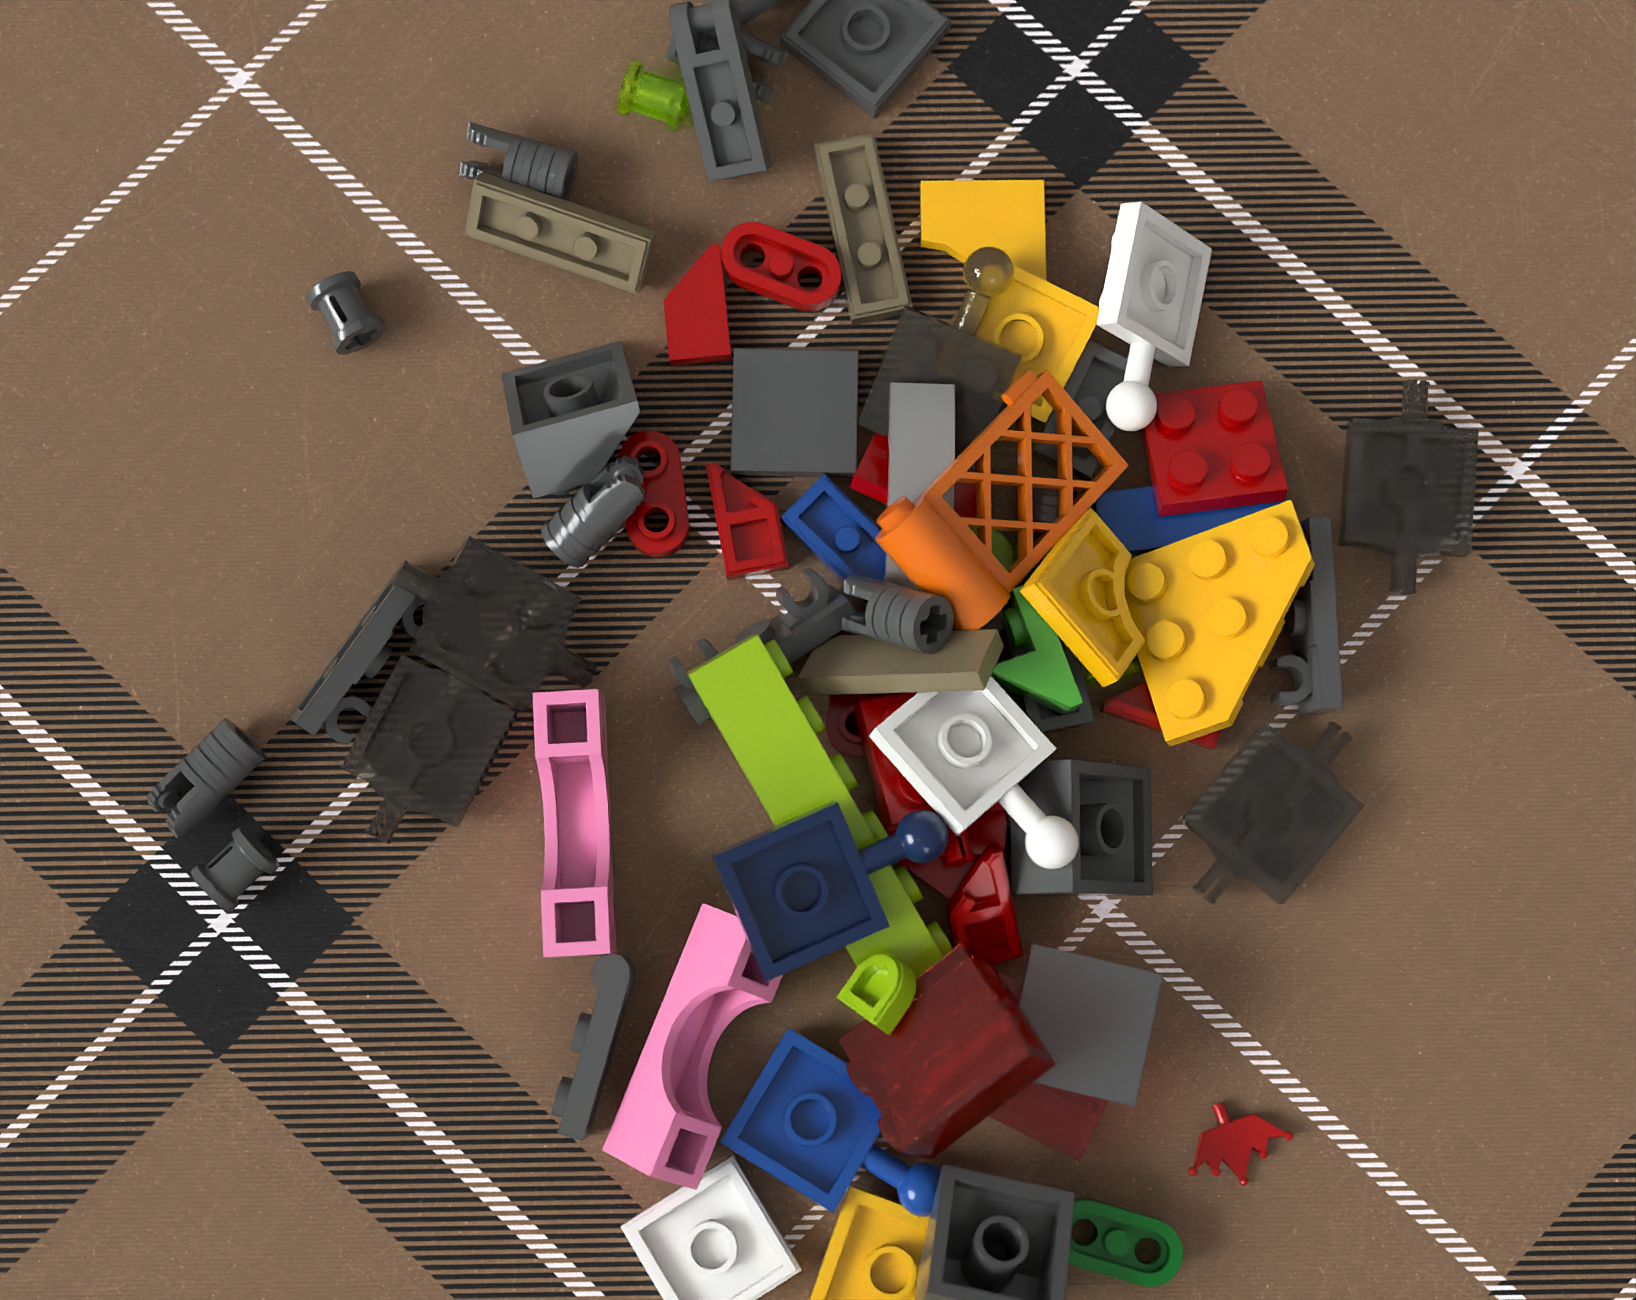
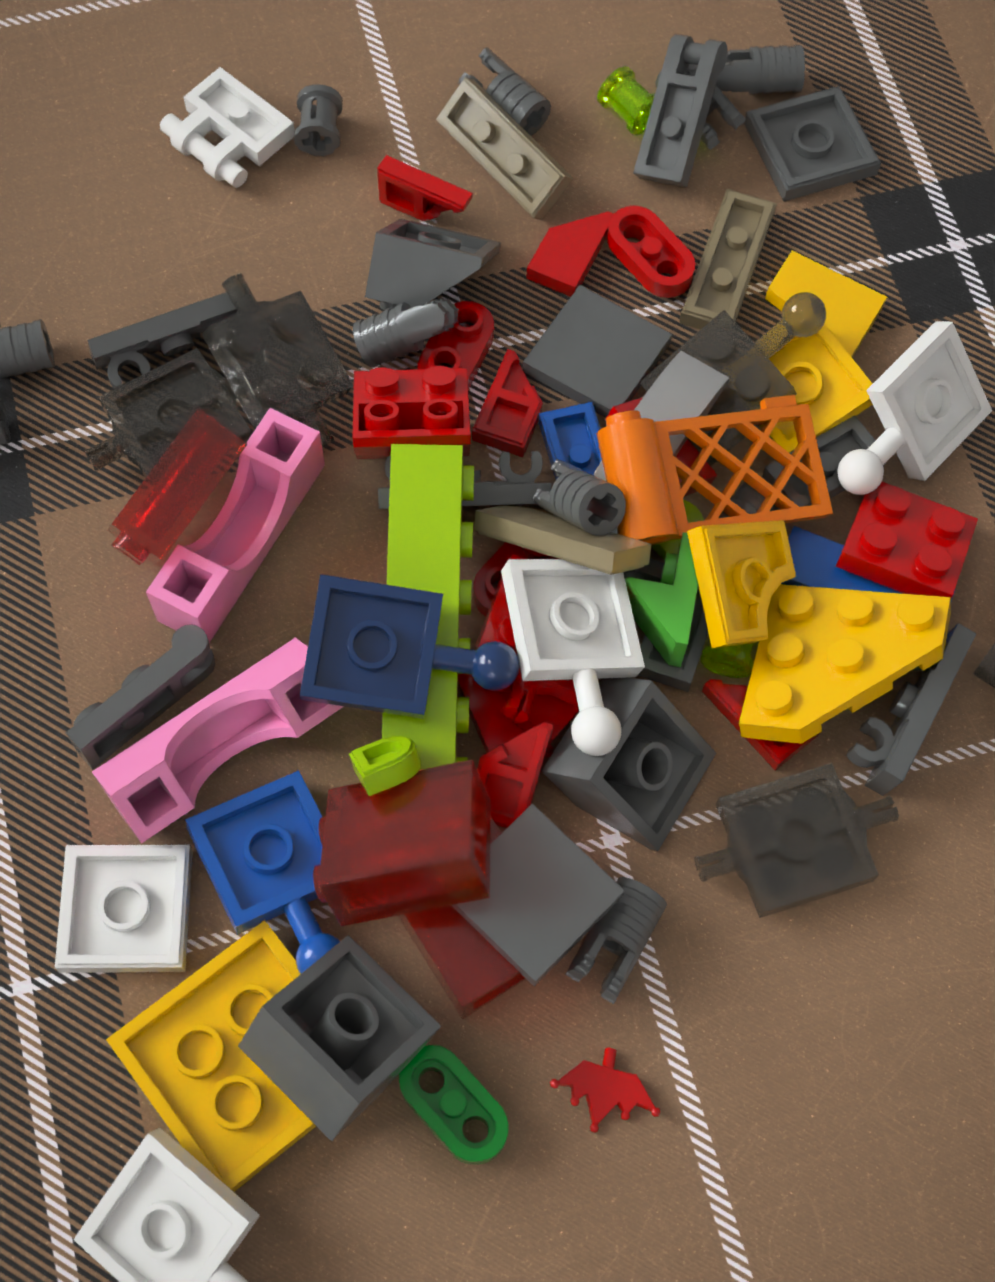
camera: 30 degrees right, 15 degrees down
(257, 358) = (237, 116): none -> white plate
(498, 836) = (175, 489): none -> clear red brick
(510, 340) = (417, 191): none -> red tile
(670, 609) = (409, 409): none -> red slope
(1176, 997) = (623, 932): none -> dark grey hinge

